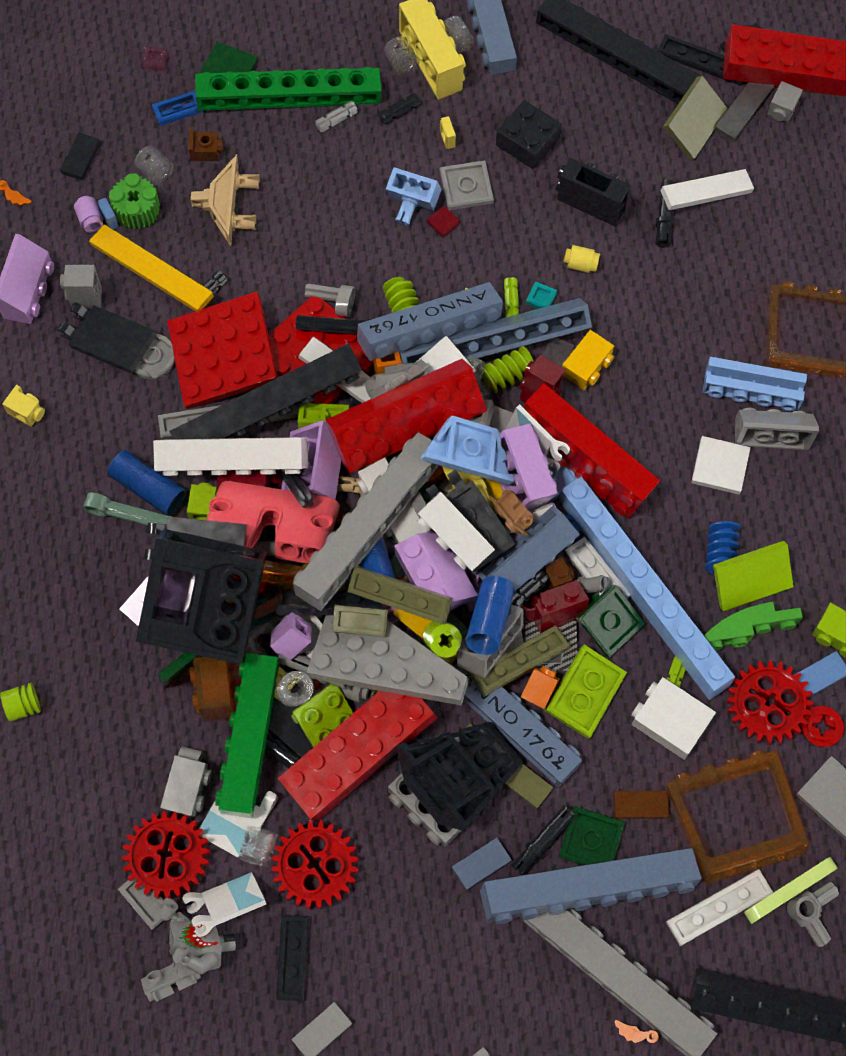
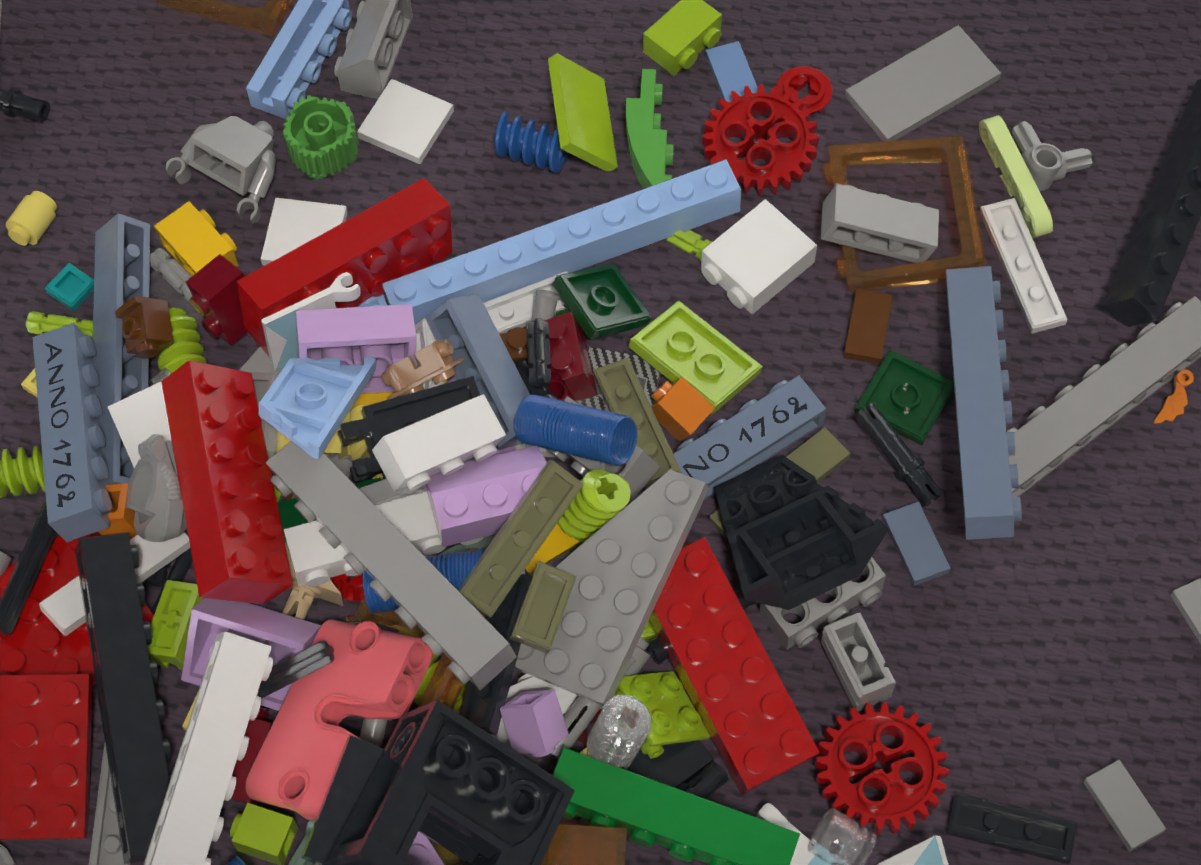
camera: 75 degrees left, 5 degrees down
(381, 835) = (857, 661): none -> light grey brick
(510, 343) = (145, 326): none -> reddish brown brick
(549, 583) = (538, 353): none -> black axle
(563, 349) = (171, 271): none -> light grey axle
(617, 420) = (298, 223): none -> white tile
(658, 364) = (232, 155): none -> light grey torso
(688, 413) = (320, 136): none -> bright green brick
(718, 795) = (879, 224): none -> light grey brick

